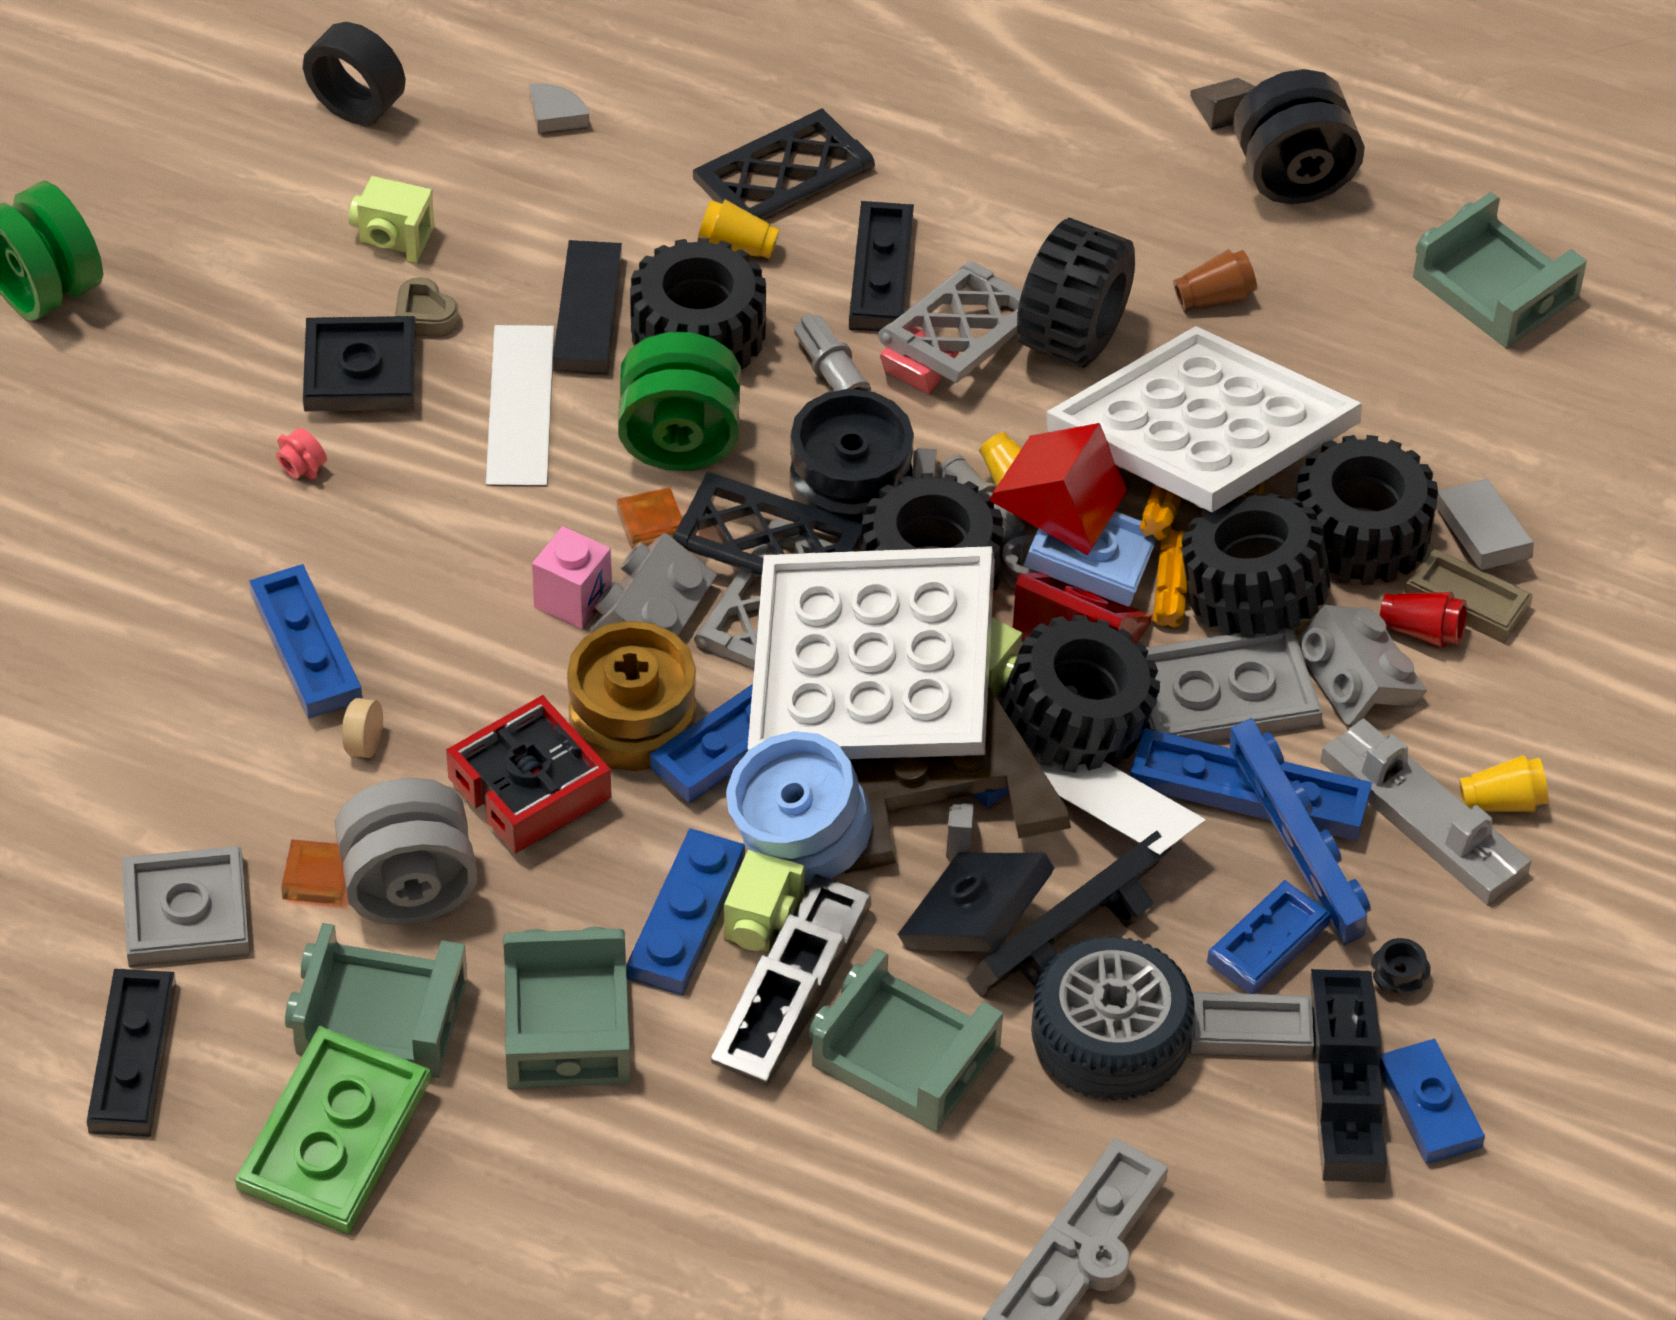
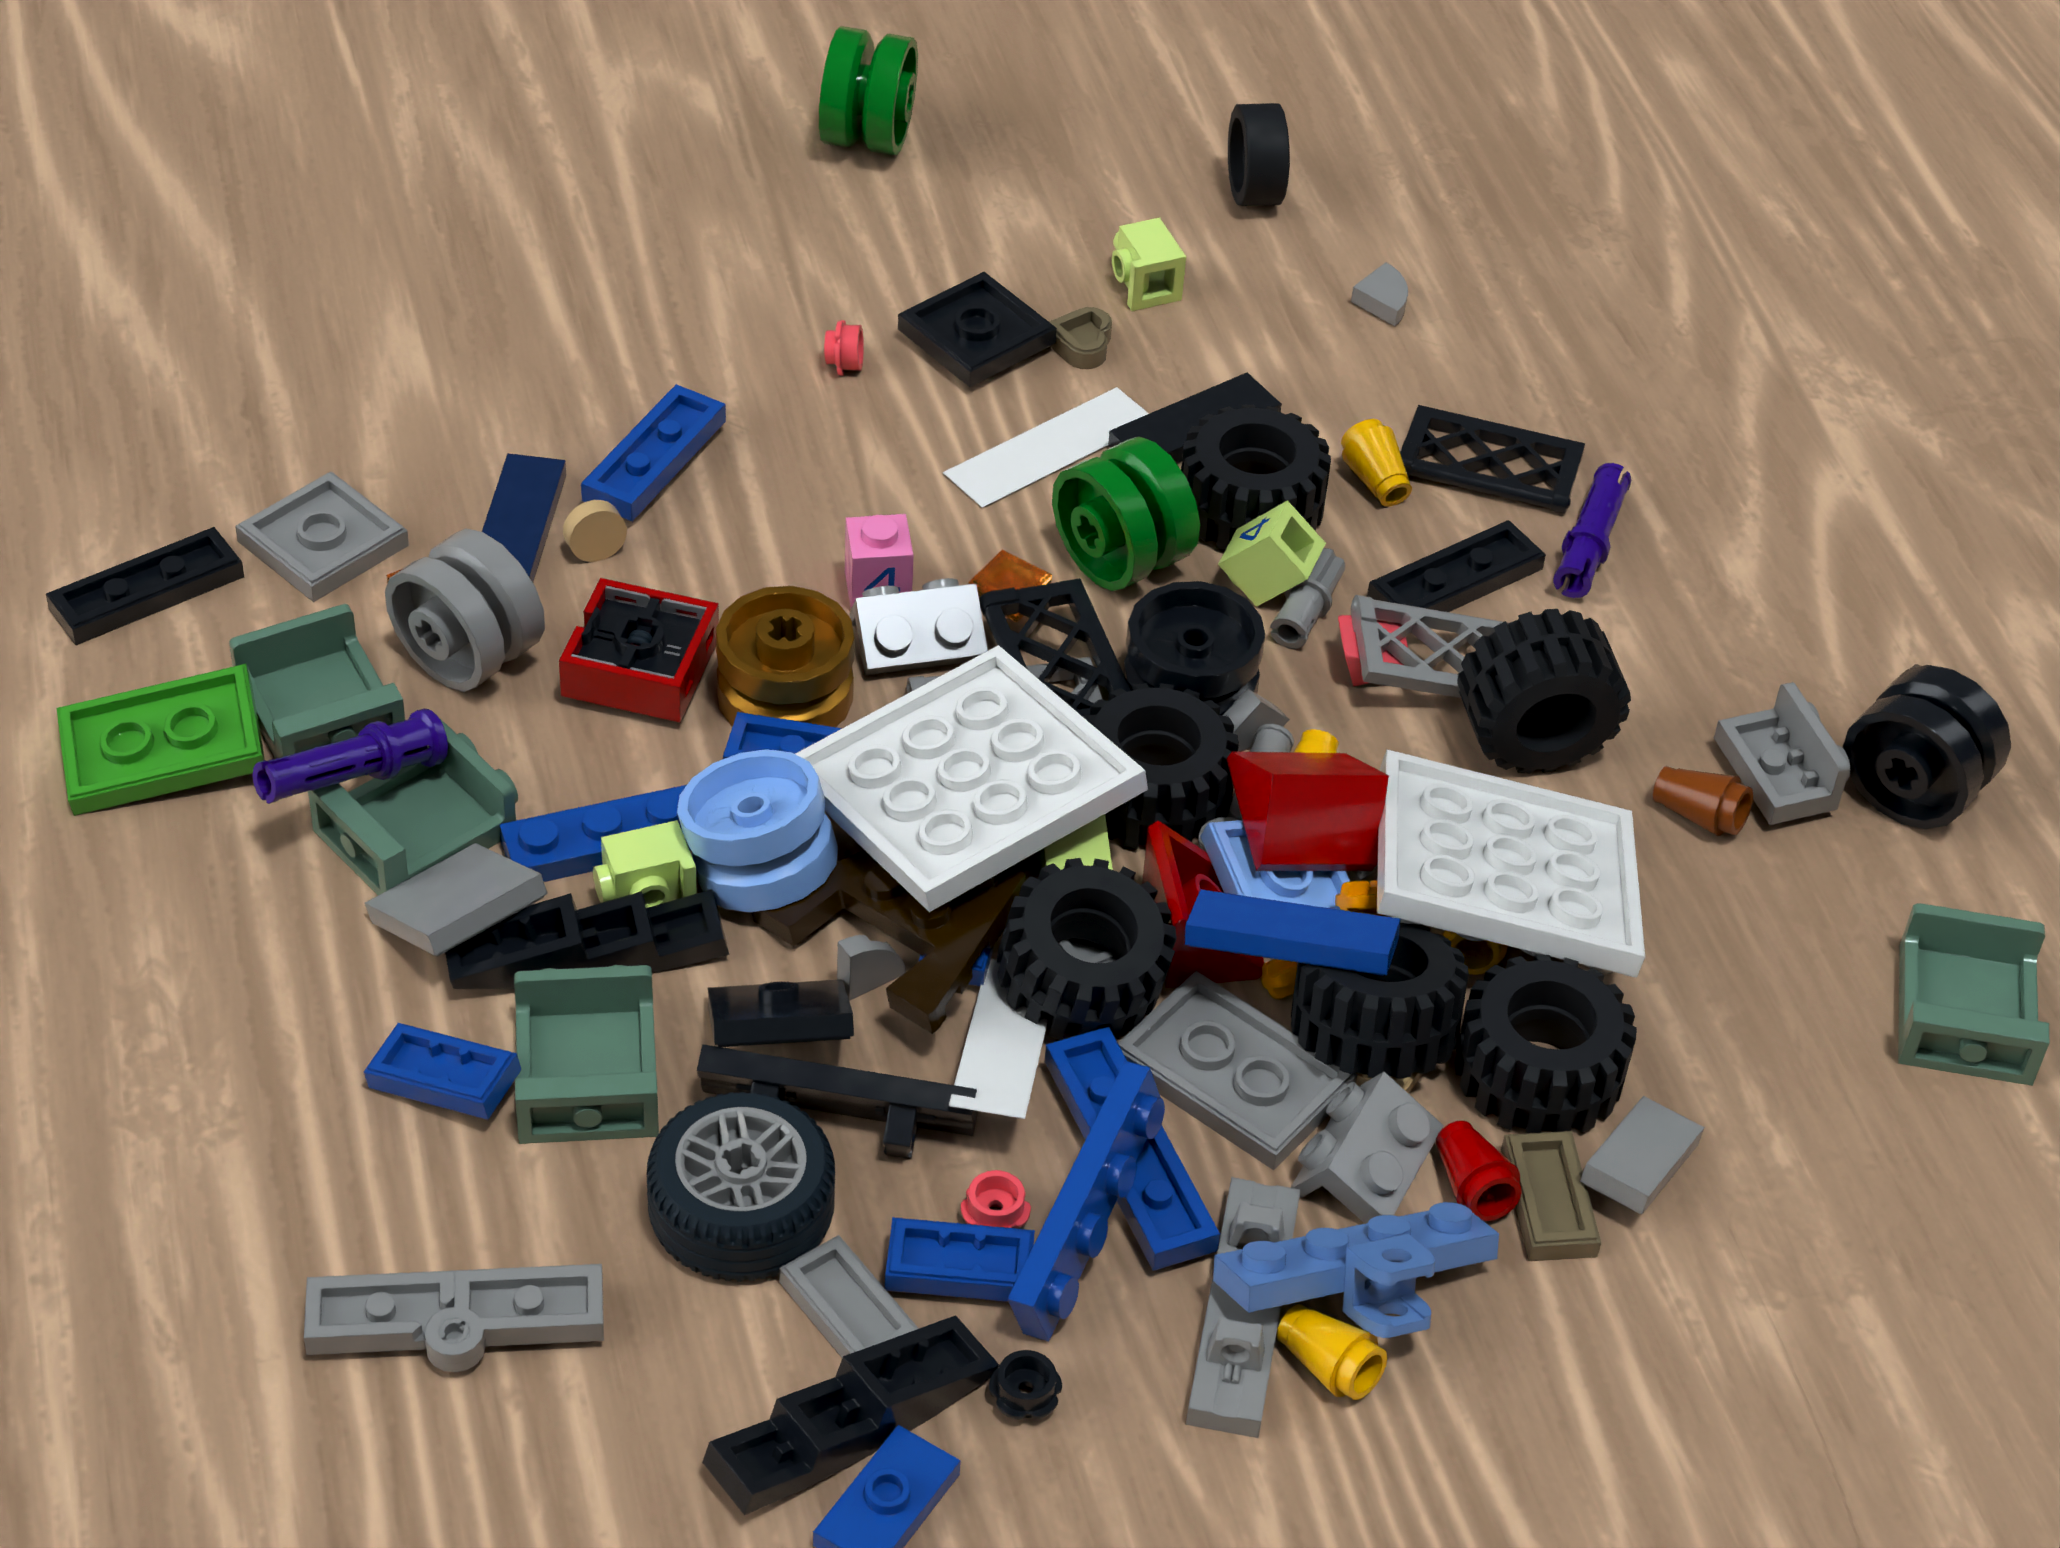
camera: 50 degrees right, 5 degrees down
(288, 767) = (525, 506): none -> dark blue tile
(512, 991) = (376, 751): none -> dark purple pin
(689, 1031) = (456, 899): none -> light grey tile
(787, 349) = (1272, 553): none -> yellowish green brick
(846, 1134) = (442, 1070): none -> blue plate
(926, 176) = (1589, 540): none -> dark purple pin
(1193, 566) = (1292, 932): none -> blue tile
(1223, 212) = (1786, 758): none -> light grey bracket
(1236, 877) = (996, 1190): none -> coral plate
(1466, 716) = (1368, 1262): none -> medium blue plate

